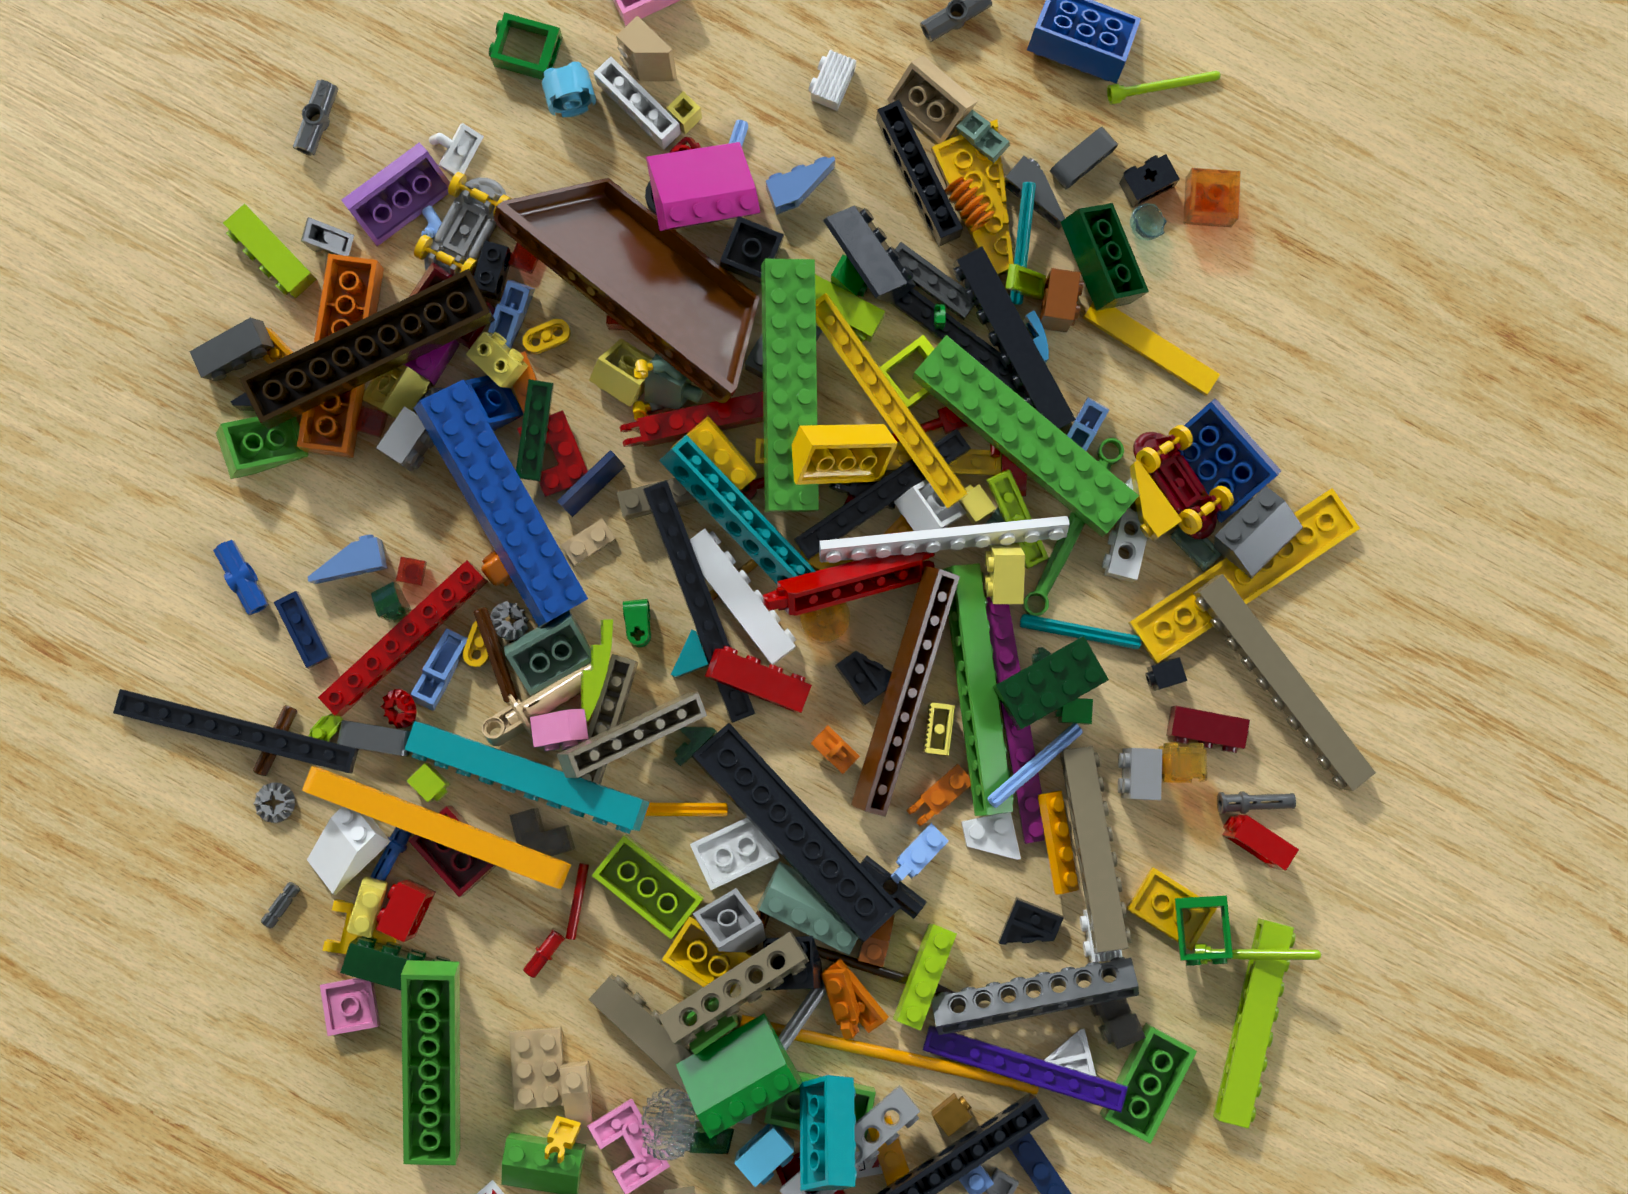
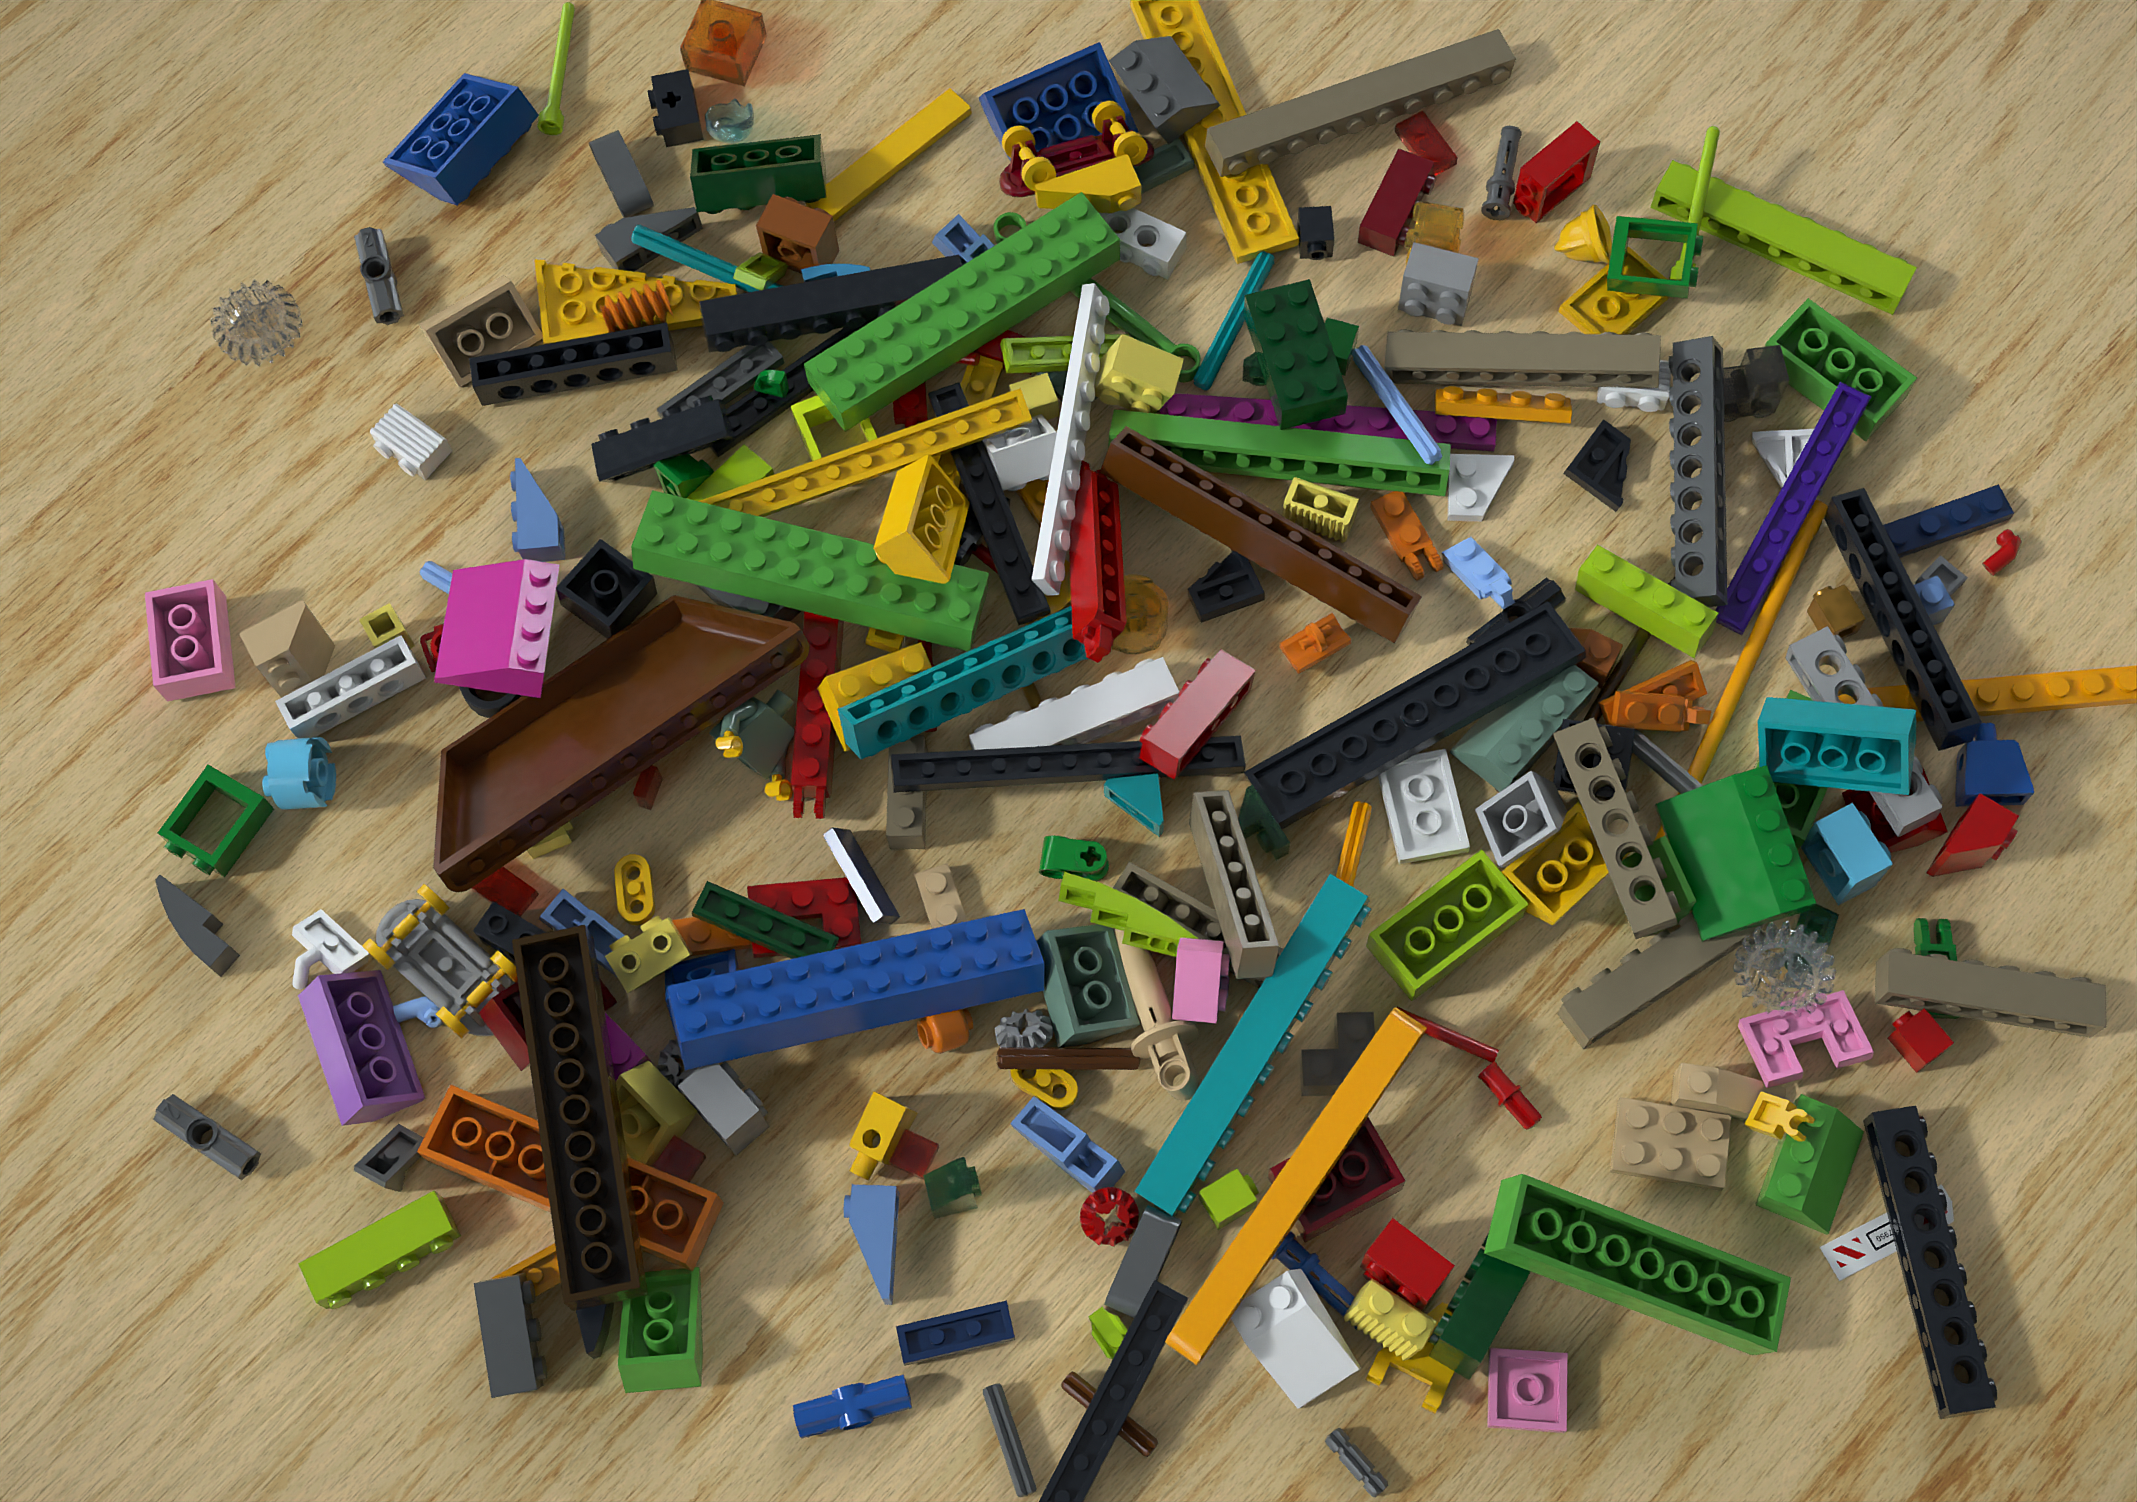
camera: 65 degrees left, 15 degrees down
(244, 681) = (1009, 1440): none -> dark grey axle
(281, 811) = (1186, 1447): light grey gear -> none
(403, 639) = (1010, 1186): red brick -> none
(417, 545) = (883, 1118): none -> yellow torso
(451, 59) = (196, 927): none -> dark grey slope
(616, 372) = (720, 796): light yellow slope -> none
(982, 136) = (546, 282): sand green slope -> none
(1212, 876) = (1586, 237): none -> yellow piece
(1267, 738) = (1425, 141): none -> clear red plate

